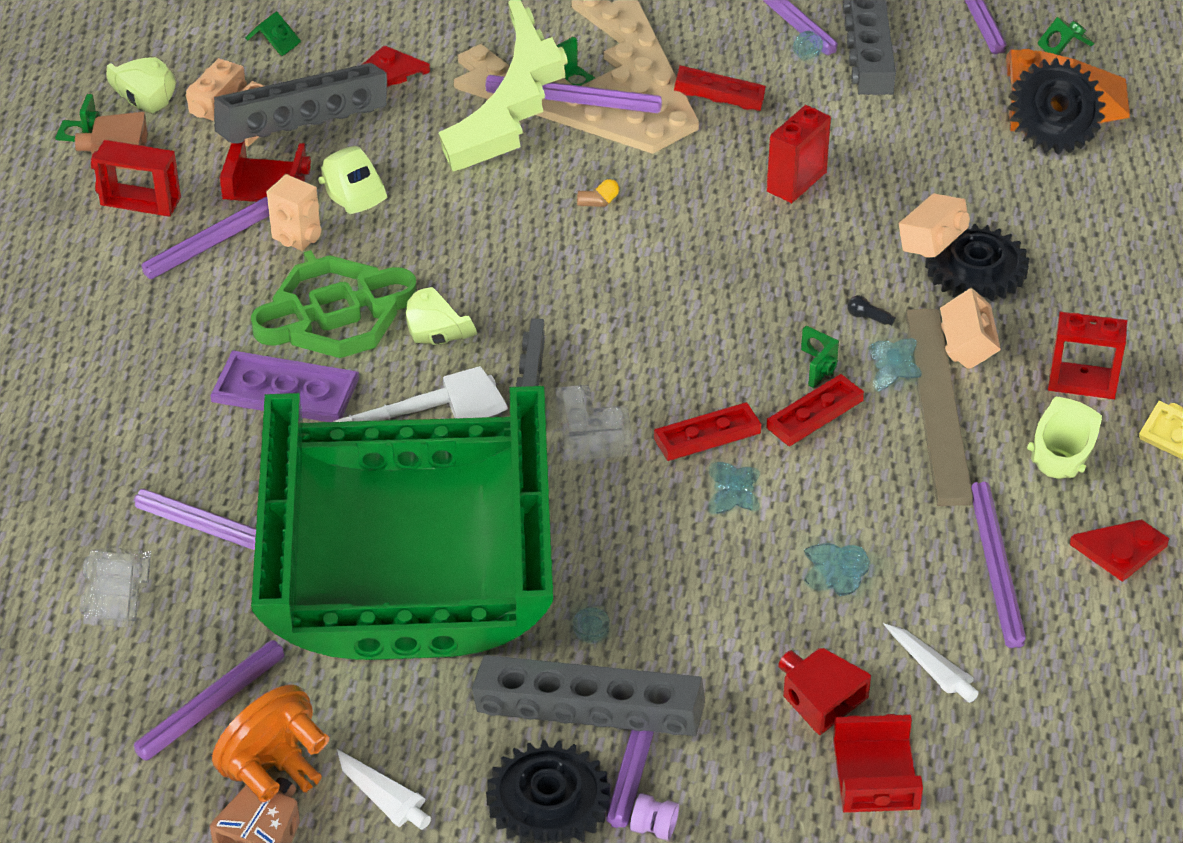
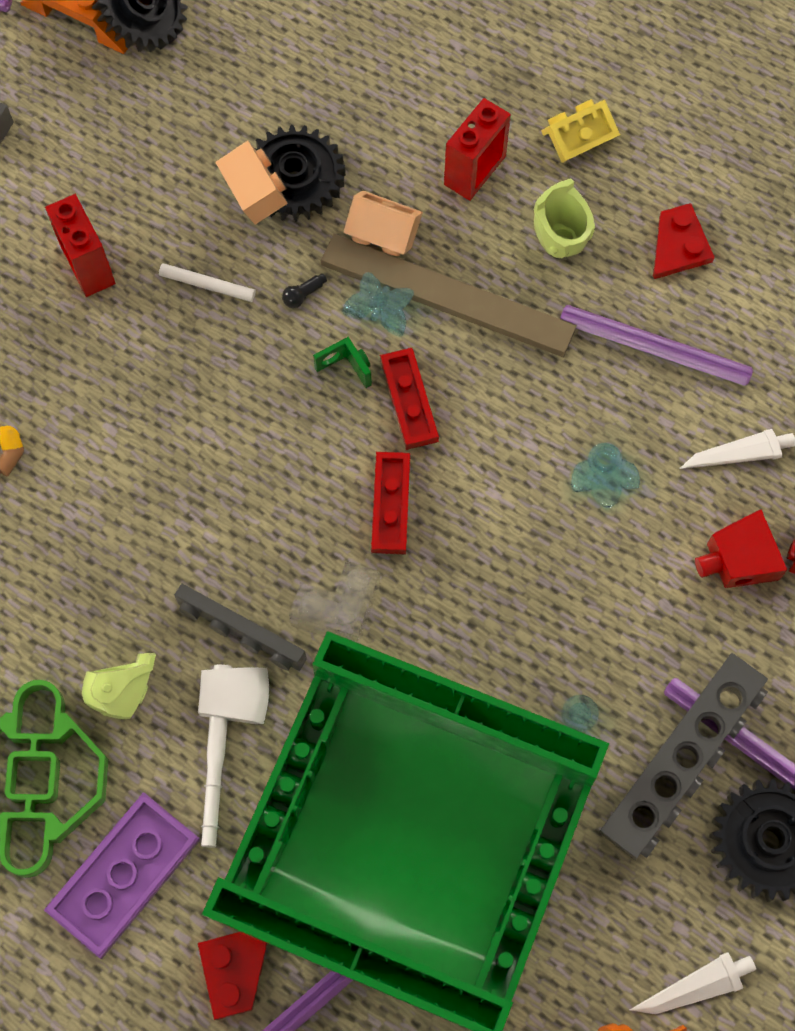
camera: 65 degrees left, 25 degrees up
(232, 478) = (232, 972): none -> red wing
(734, 487) = (464, 509): clear light blue piece -> none
(833, 253) = (207, 282): none -> white bar

